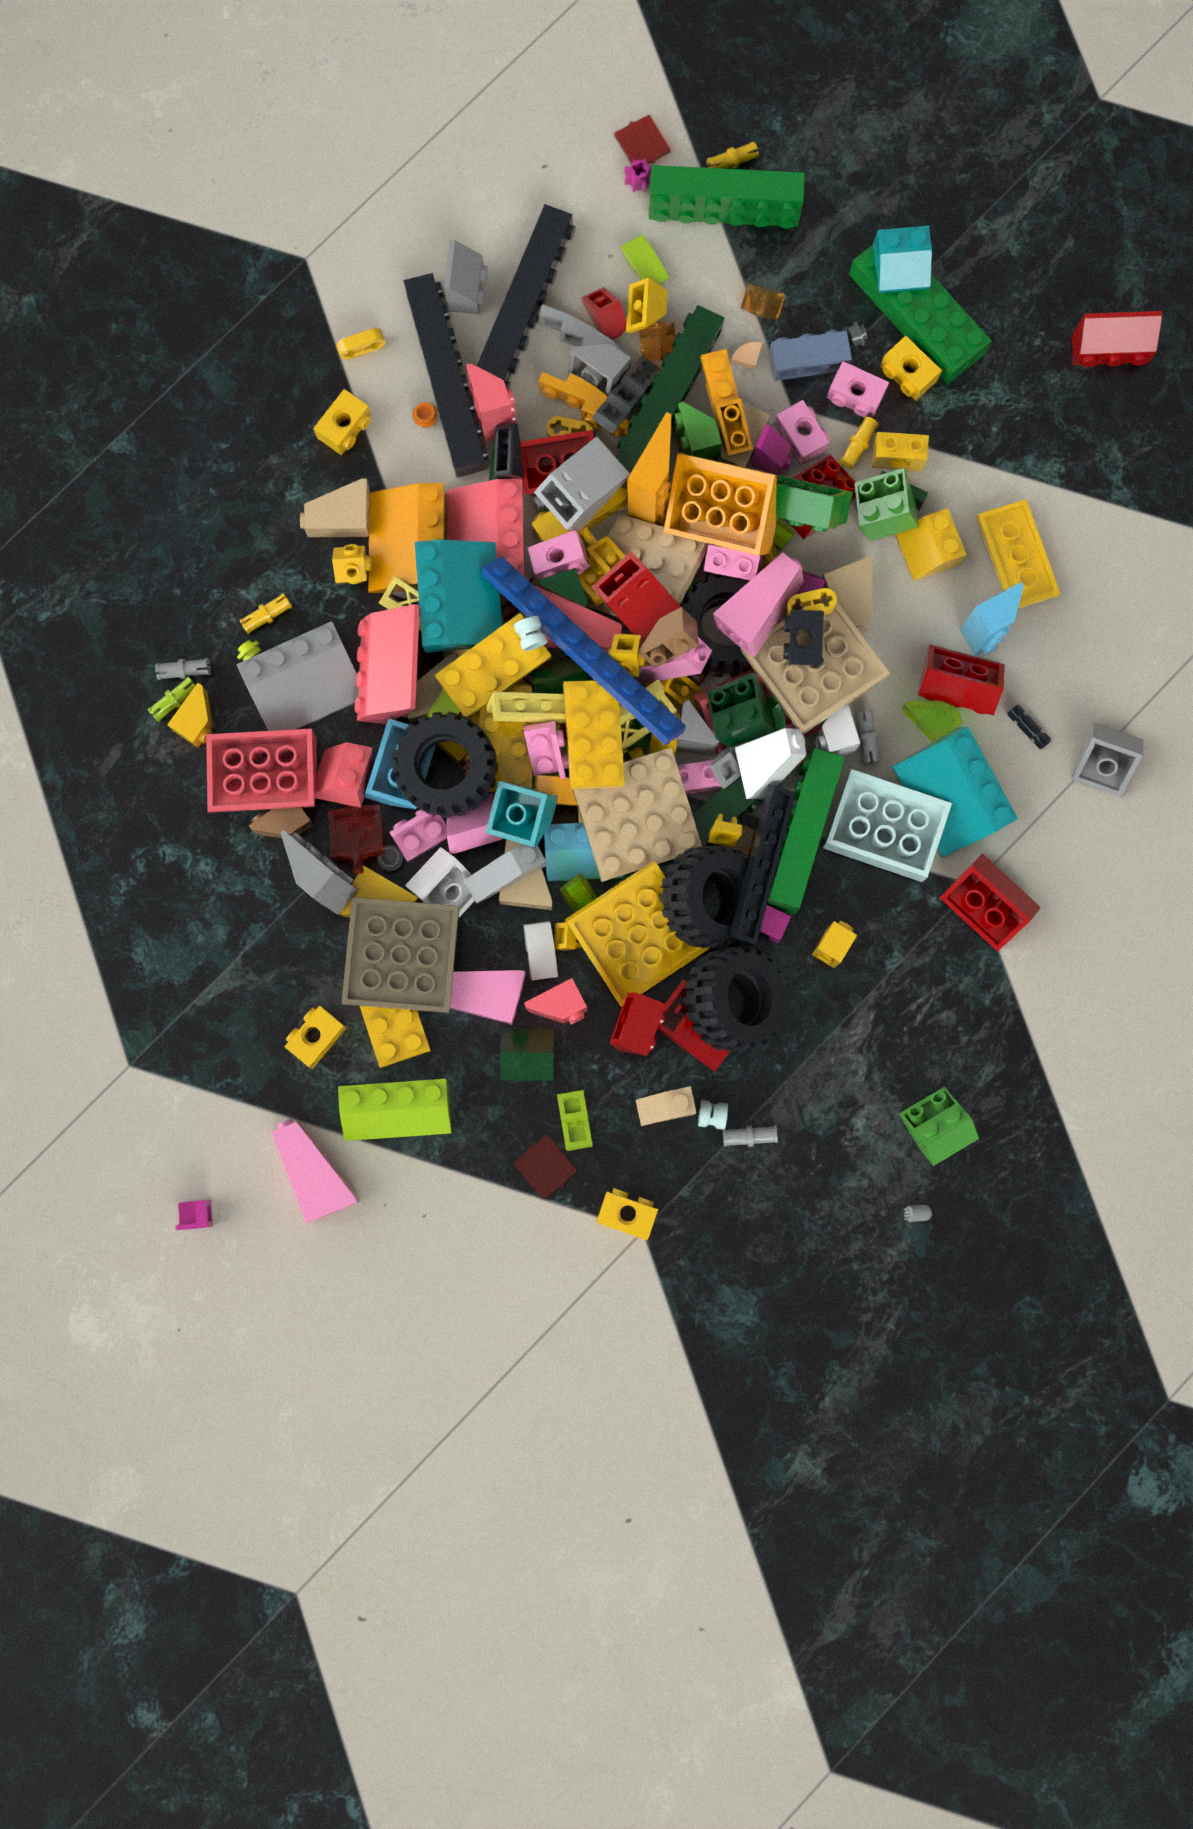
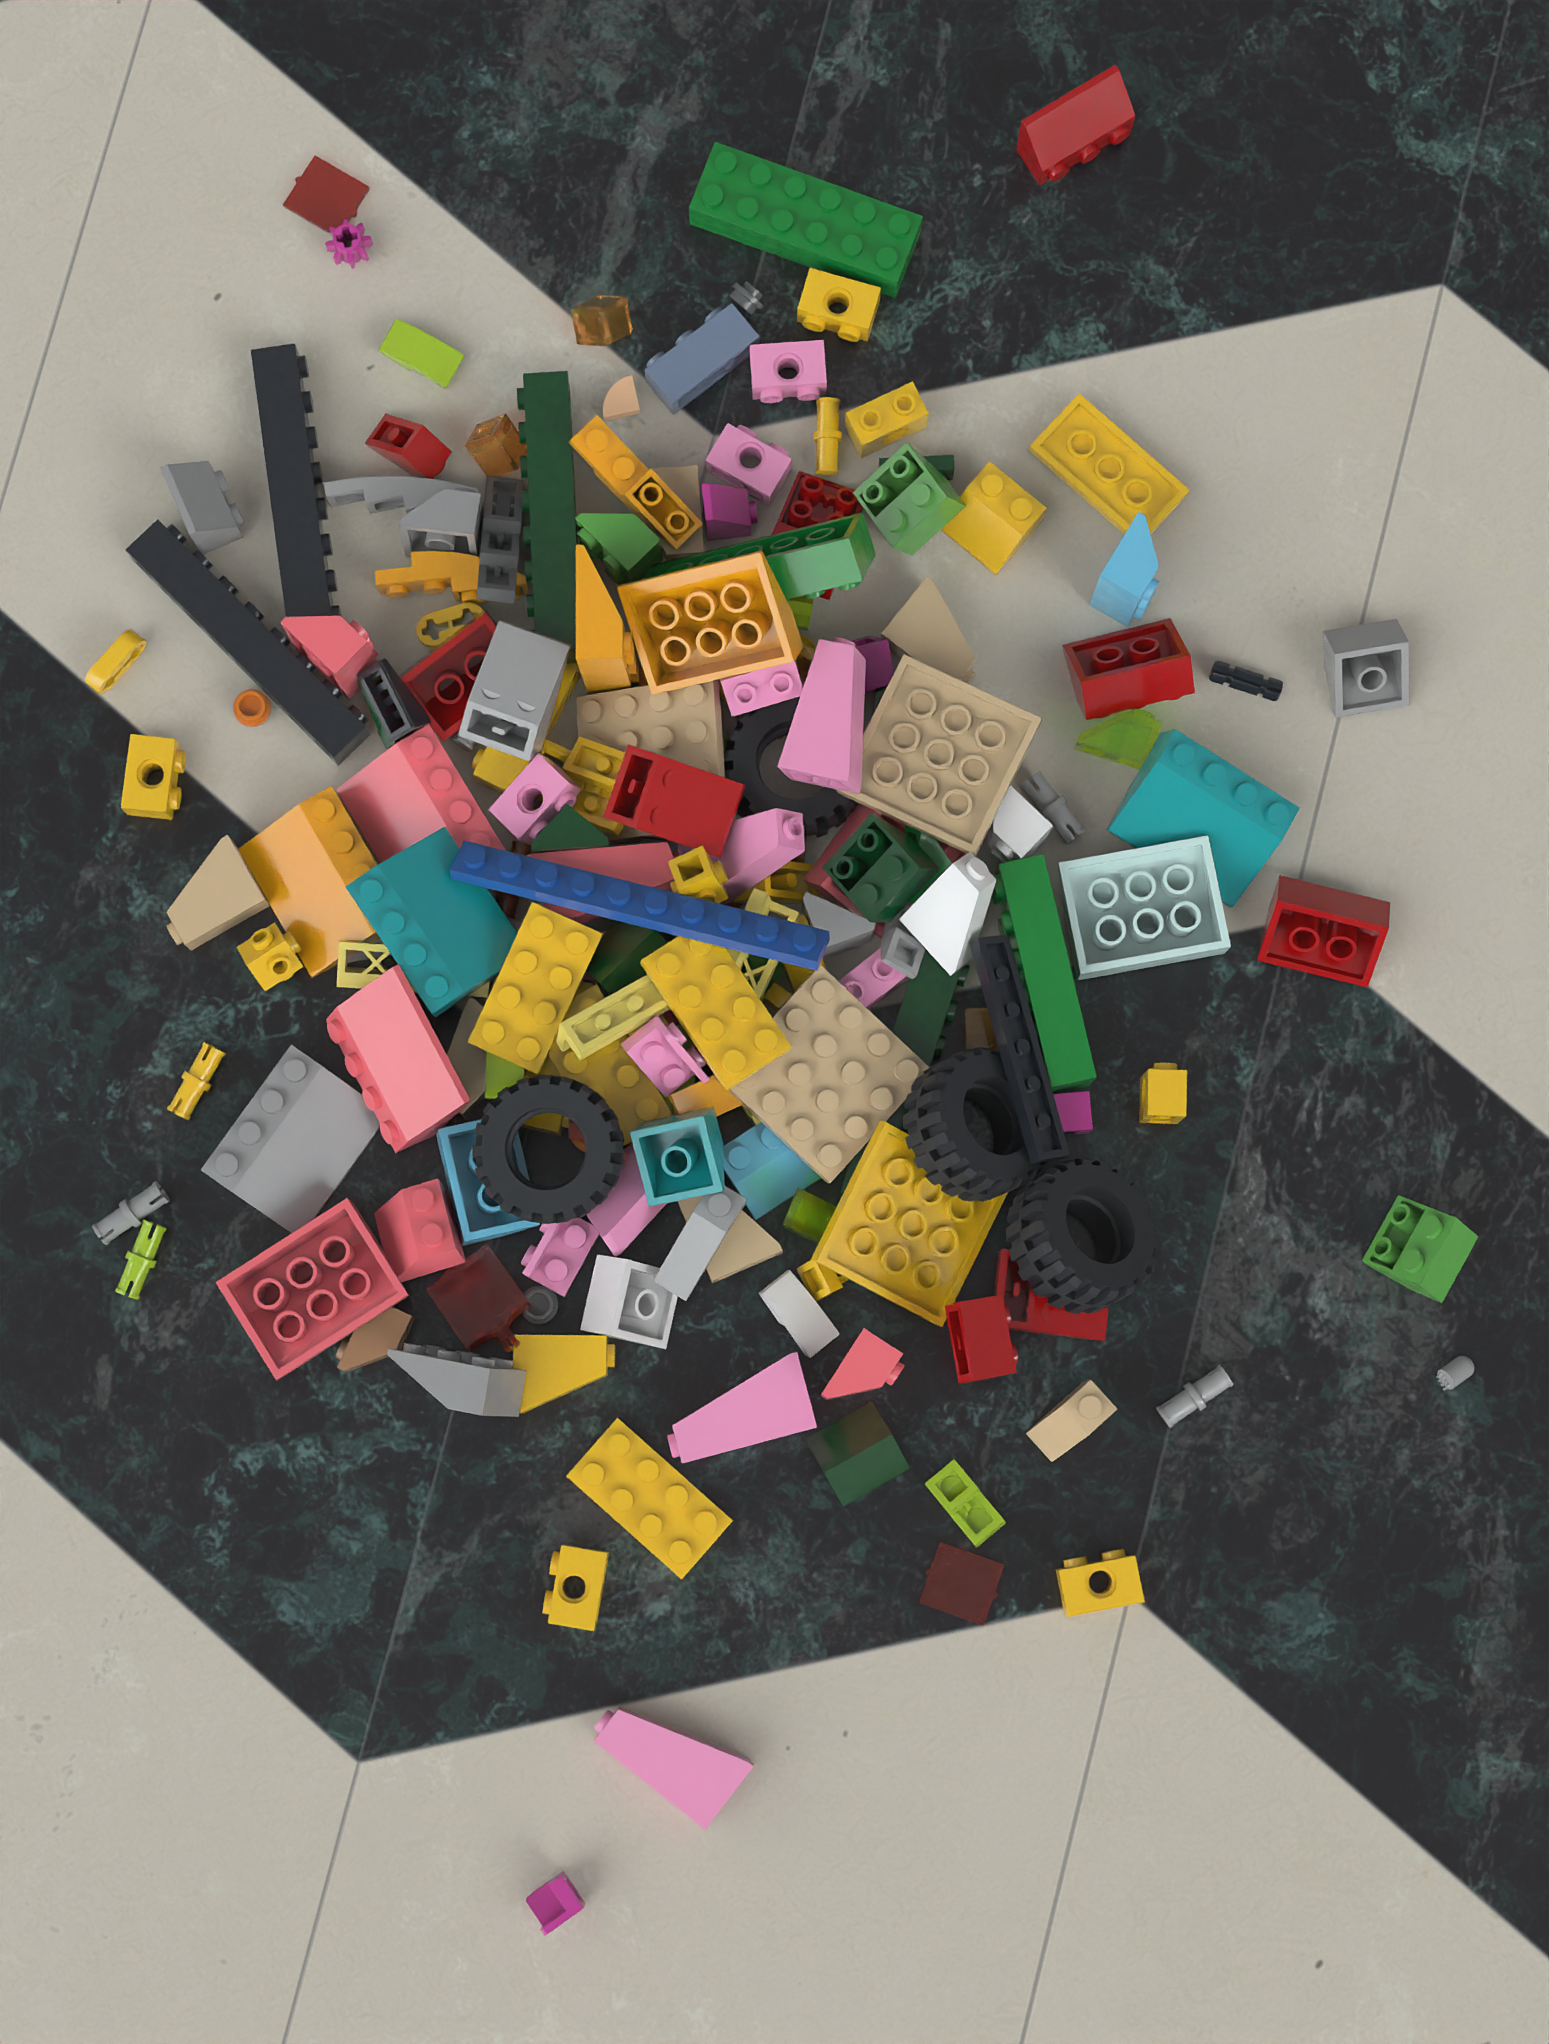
camera: 30 degrees left, 0 degrees up
(193, 717) = (183, 1269): yellow slope -> none
(248, 650) = (202, 1141): neon yellow plate -> none
(395, 1109) = (732, 1621): lime slope -> none
(400, 955) = (629, 1422): dark tan plate -> none
(530, 633) = (556, 916): light aqua wheel -> none
(645, 304) = (456, 410): yellow slope -> none
(670, 638) = (743, 828): medium nougat slope -> none
(719, 1114) = (1141, 1392): light aqua wheel -> none
(725, 832) = (948, 1033): yellow tile -> none
(726, 196) = (478, 212): green brick -> none
(734, 157) = (456, 155): yellow pin -> none
(808, 621) = (928, 751): black brick -> none
(813, 597) = (887, 679): yellow beam -> none
(903, 259) = (754, 175): slope -> none

